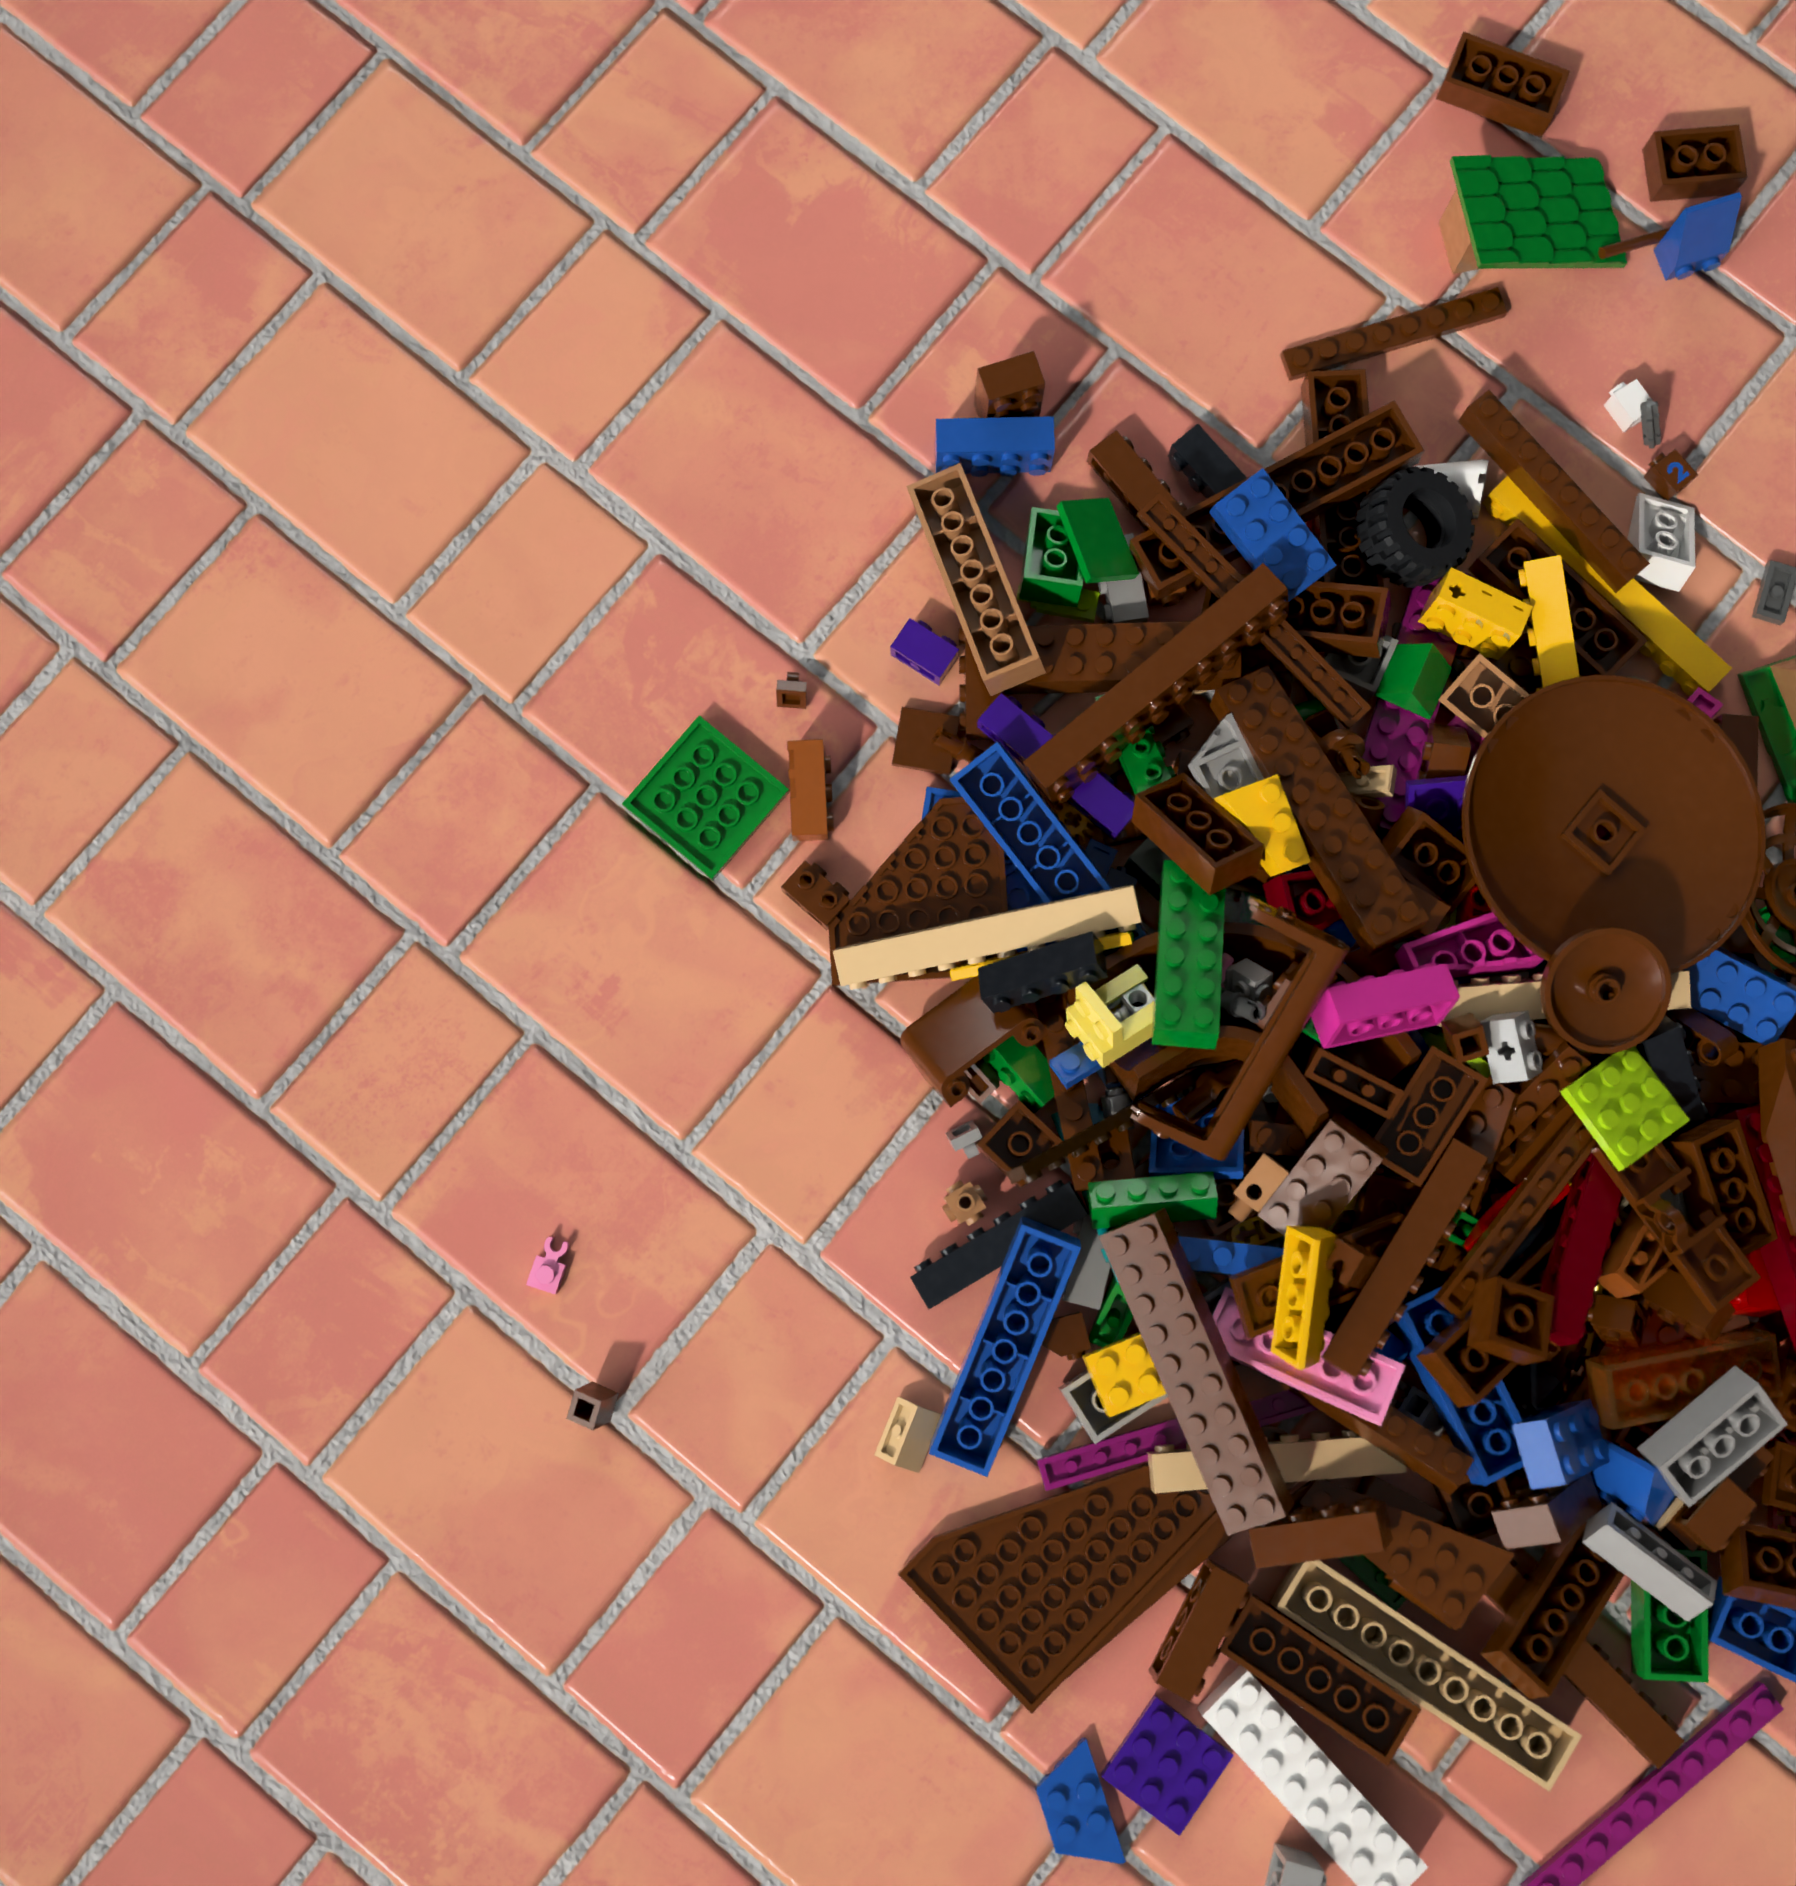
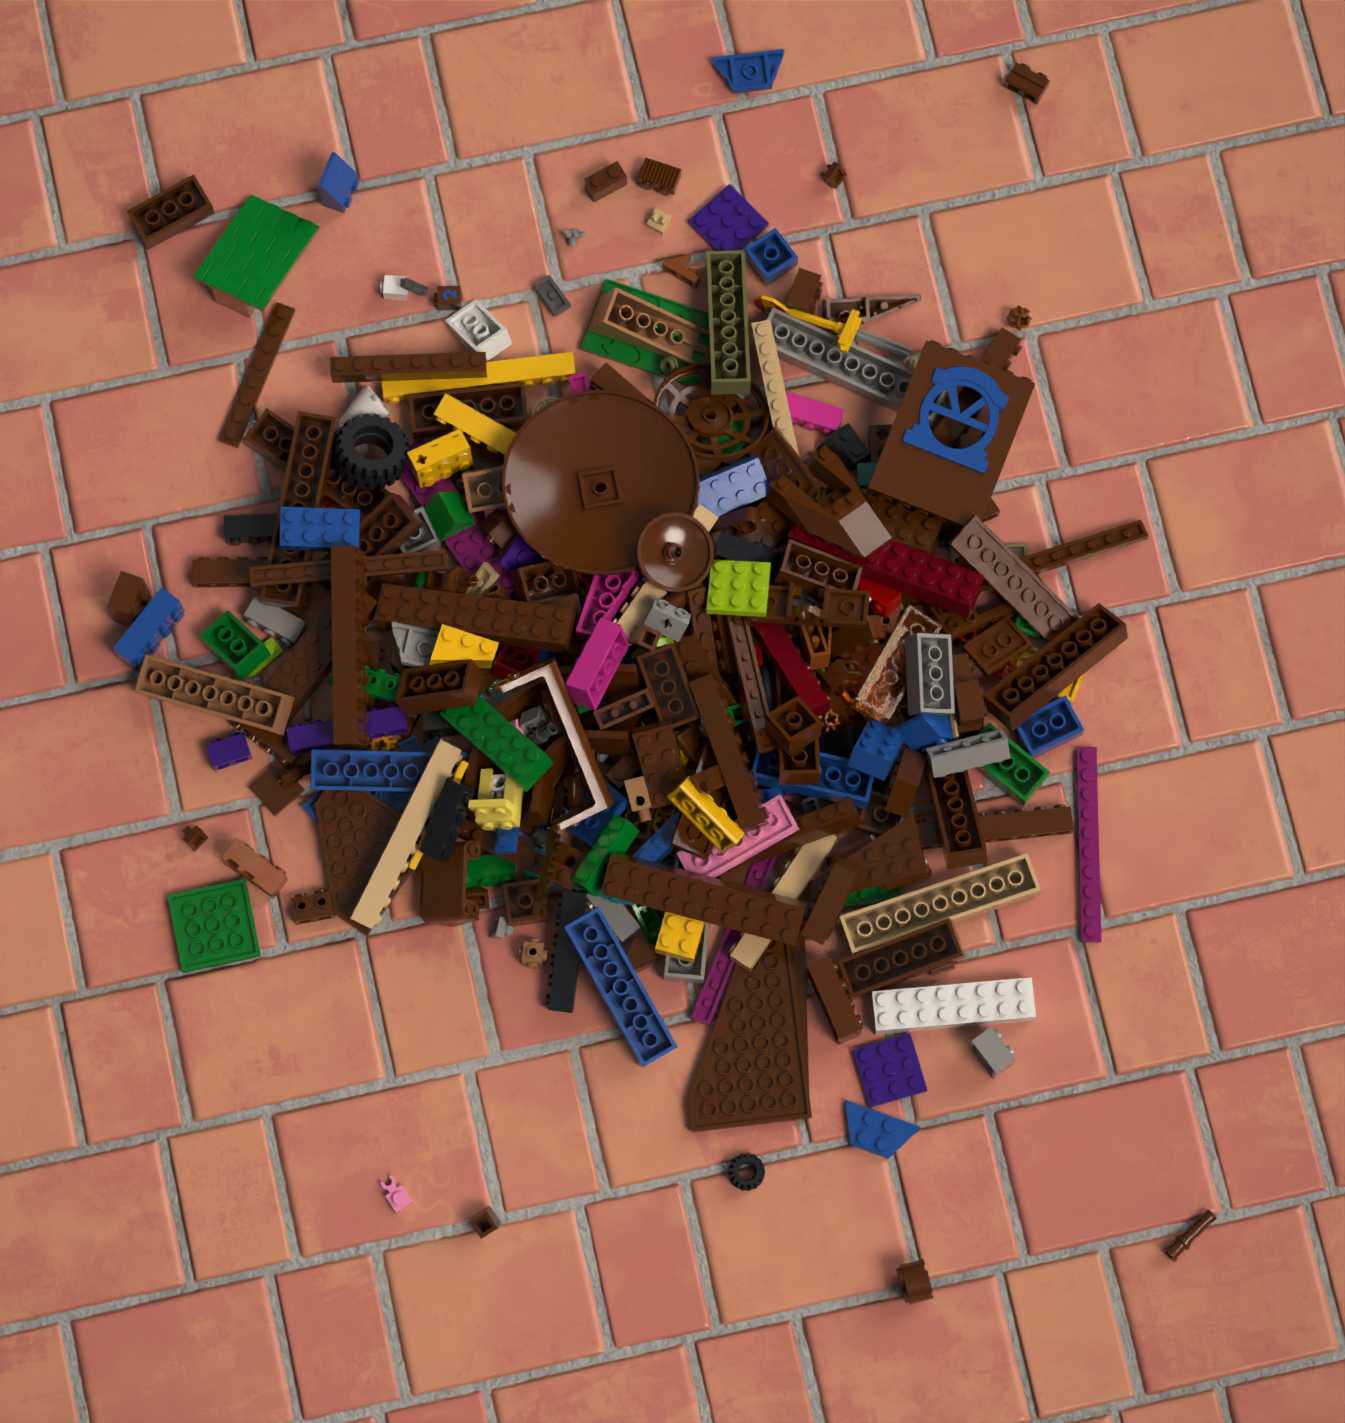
camera: 50 degrees left, 5 degrees down
(907, 1435) = (627, 1074): tan panel -> none
(908, 1701) = (751, 1160): none -> black tyre
(1097, 540) = (245, 616): green tile -> none
(1632, 244) = (311, 217): reddish brown bar -> none
(1694, 163) = (294, 150): reddish brown brick -> none

